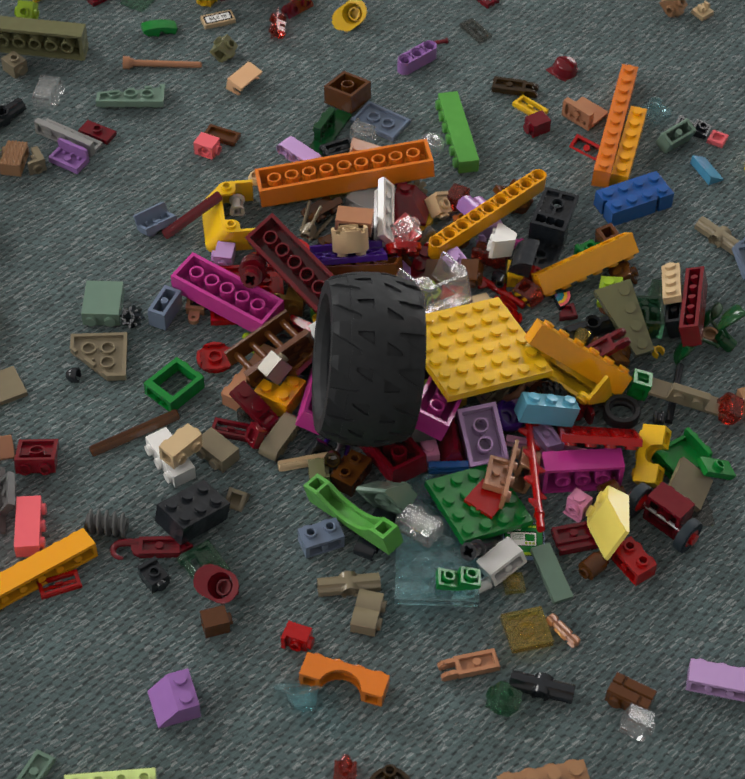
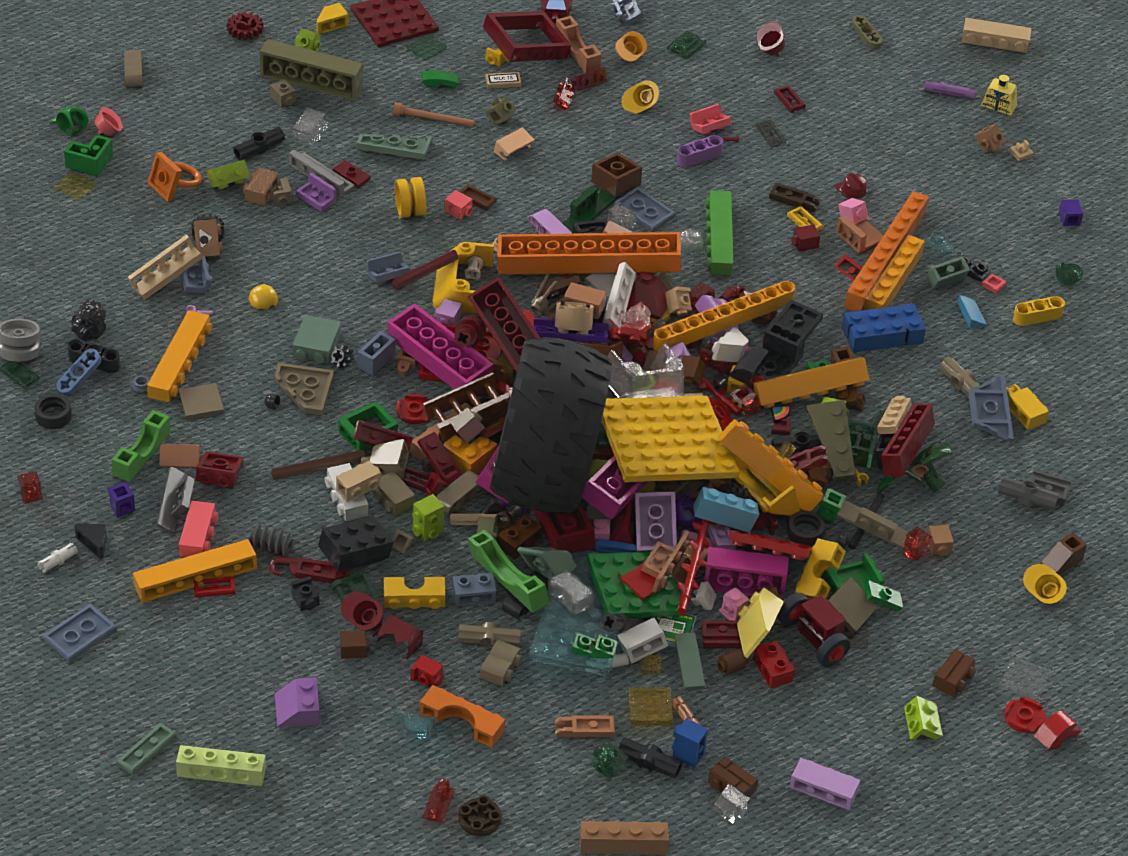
camera: 10 degrees right, 5 degrees down
(40, 269) = (263, 297): none -> yellow hair
(160, 146) = (410, 197): none -> yellow wheel
(192, 394) = (375, 435): none -> dark red tile
(203, 414) = (389, 457): none -> torso
(247, 558) = (400, 596): none -> yellow arch
(258, 470) = (428, 518): none -> lime brick
(262, 598) = (402, 632): none -> dark red piece
(417, 26) = (709, 119): none -> coral bracket
(485, 187) = (732, 292): none -> dark red arm
(549, 504) = (704, 596): none -> white tile
(573, 89) = (854, 210): none -> bright pink brick
(578, 664) = (689, 742): none -> blue brick

